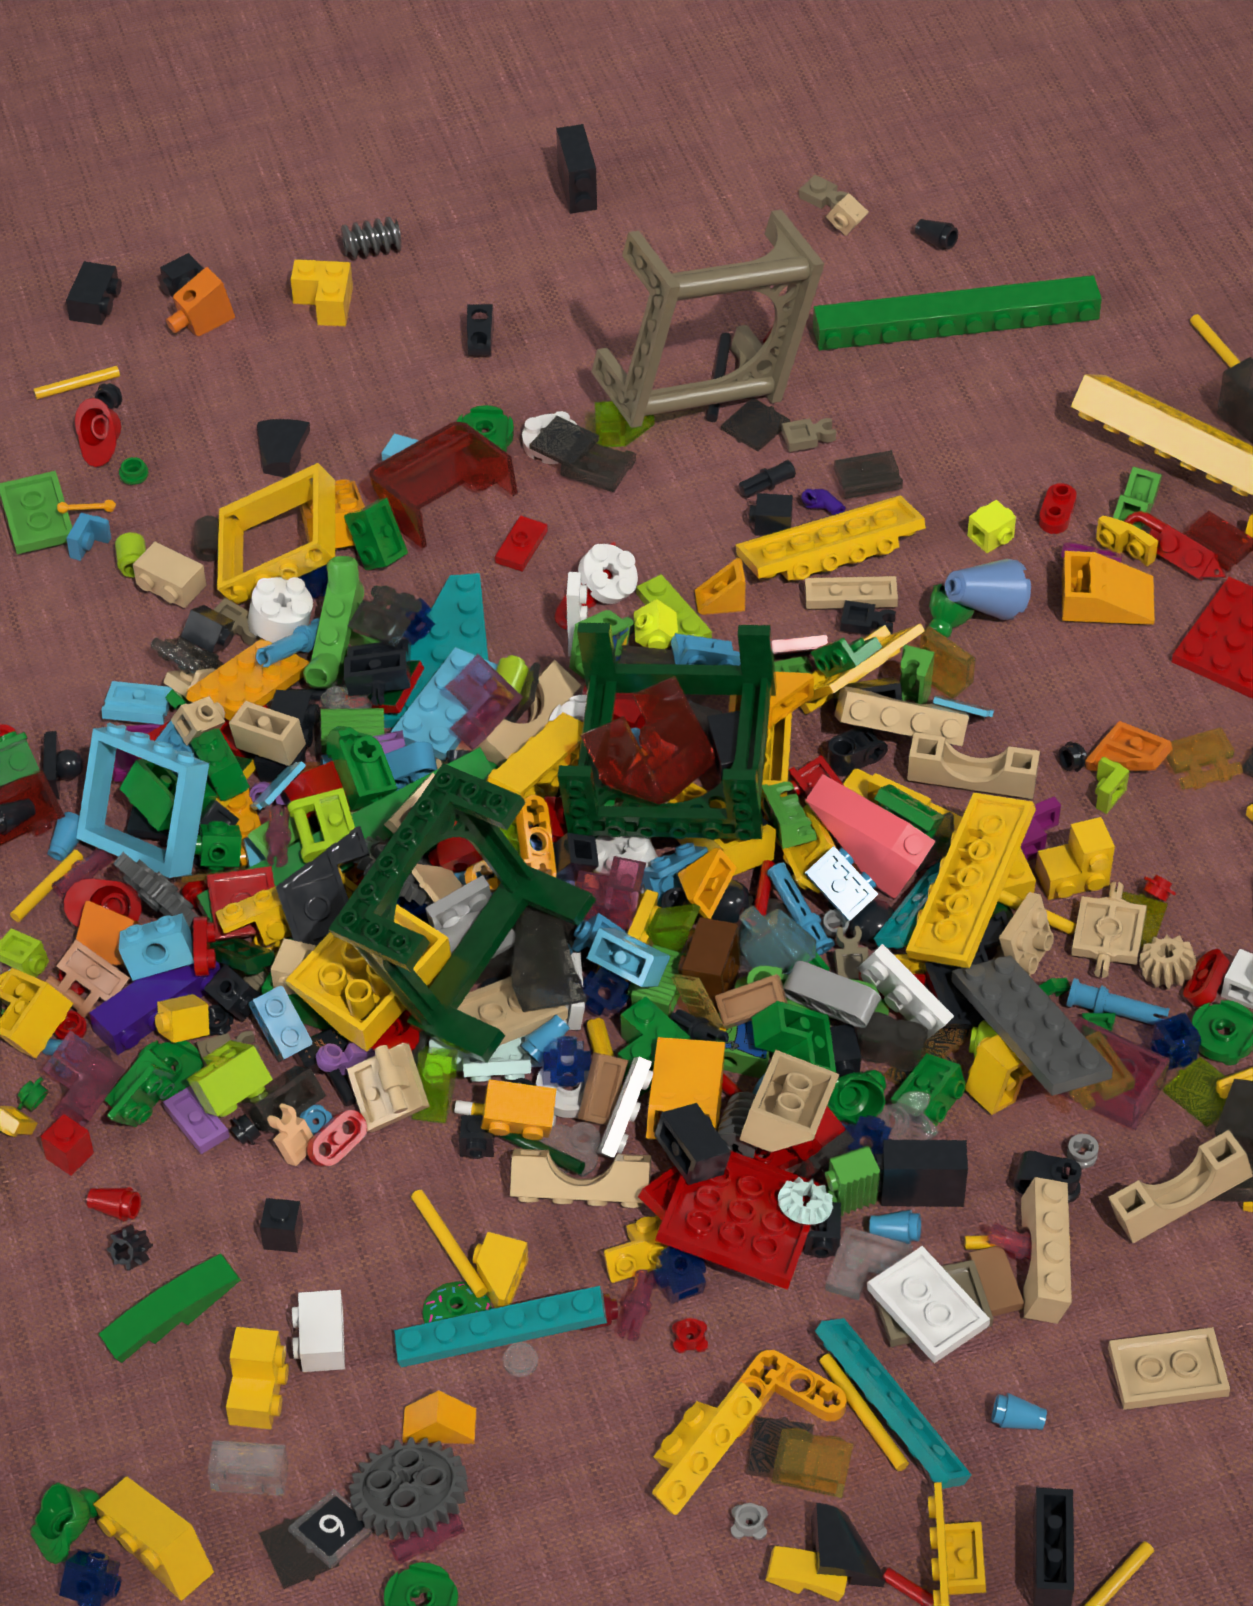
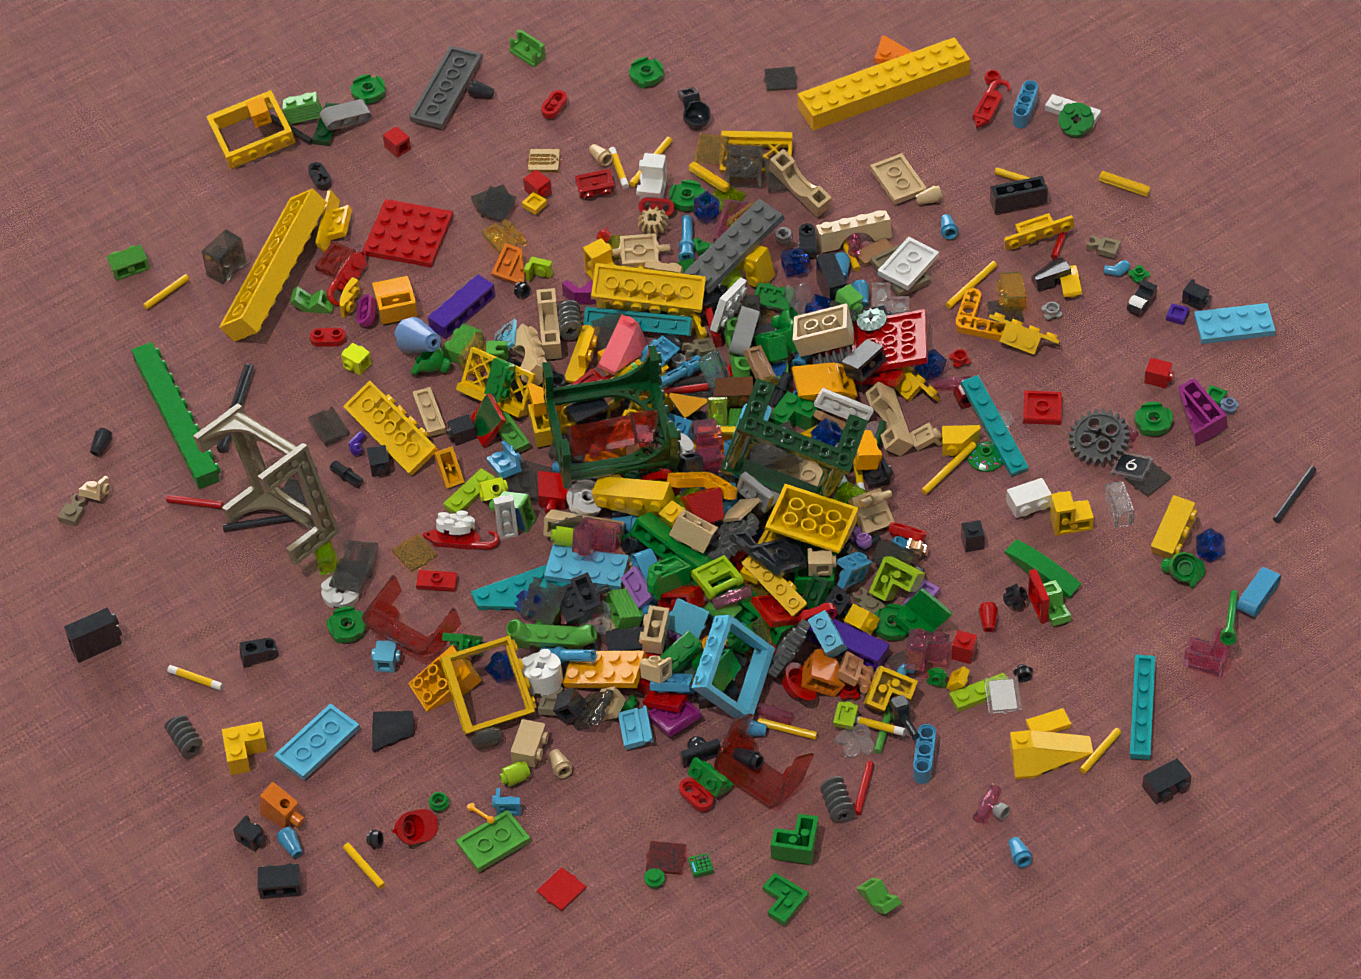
camera: 105 degrees left, 0 degrees up
(89, 1305) = (1057, 611): none -> bright green slope
(102, 1269) = (1038, 596): none -> red tile
(123, 607) = (560, 764): none -> tan cone
(149, 314) = (289, 841): none -> dark azure cone
(298, 367) = (317, 741): none -> medium azure plate
(440, 1419) = (1055, 443): light orange slope -> none
(472, 270) = (195, 677): none -> yellow bar
(527, 1432) = (1042, 407): none -> red tile
(528, 1225) = (925, 436): none -> tan bracket
(587, 529) = (414, 552): none -> clear yellow piece
(795, 617) = (461, 430): none -> black brick
(862, 618) = (448, 401): black plate -> none
(892, 1403) = (964, 271): teal plate -> none
(909, 809) = (604, 330): green bracket -> none
(950, 383) = (239, 397): none -> black axle
(961, 791) = (569, 319): none -> dark grey piece
(973, 1214) = (844, 262): none -> dark azure cone
(991, 660) = (459, 341): none -> bright green brick
(1000, 1139) = (794, 262): none -> clear blue brick
(1059, 671) = (461, 306): none -> dark purple brick
(1107, 1408) = (930, 195): none -> tan cone

